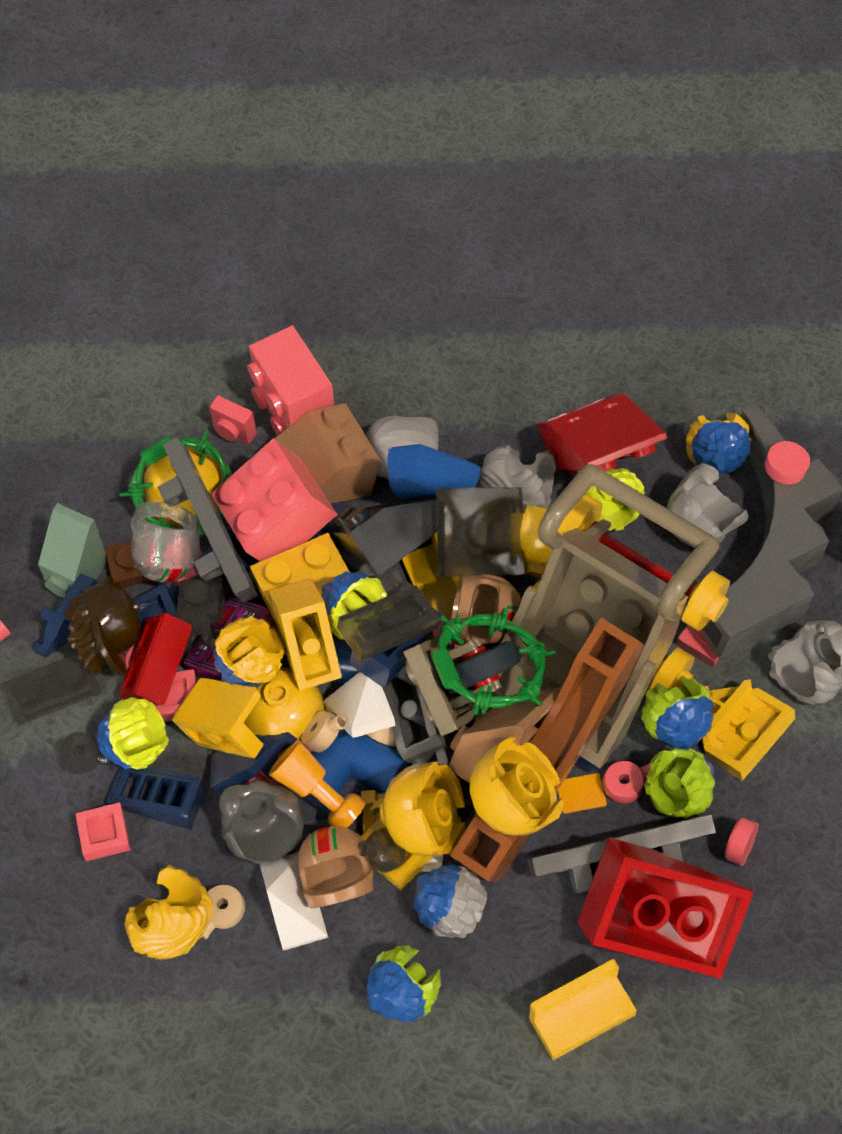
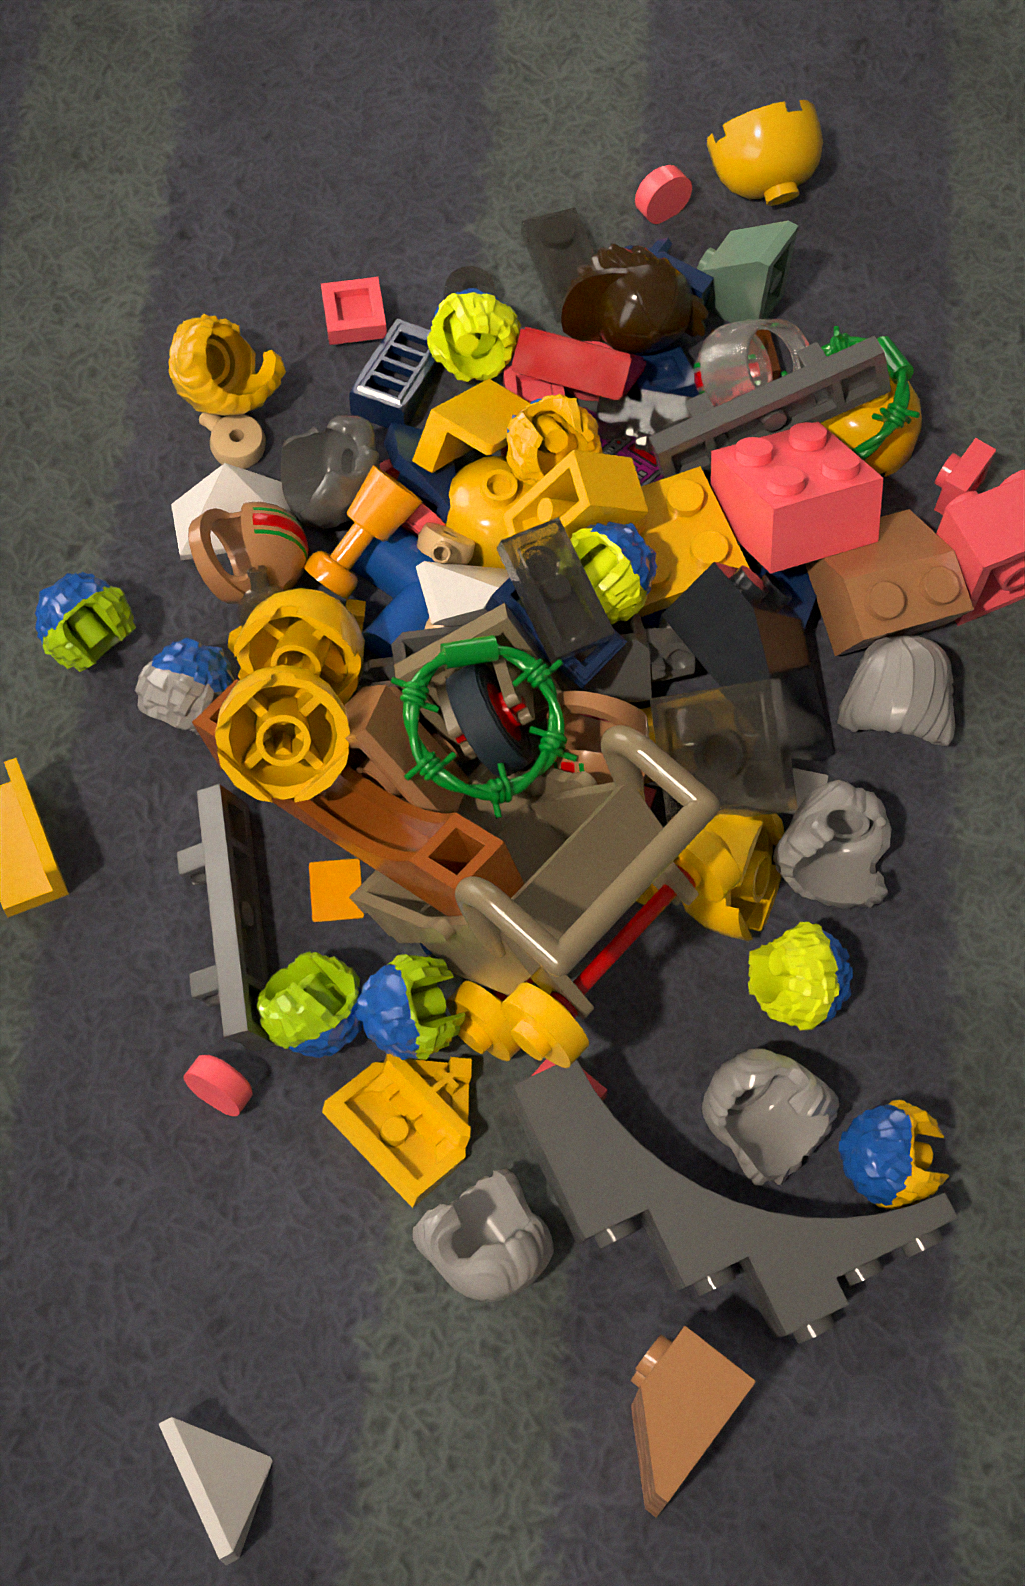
camera: 90 degrees right, 5 degrees up
(420, 470) = (815, 675): blue brick -> none
(600, 434) = (894, 953): red slope -> none
(626, 771) = (345, 928): coral piece -> none
(663, 909) = (122, 946): red slope -> none
(787, 462) = (831, 1239): coral tile -> none

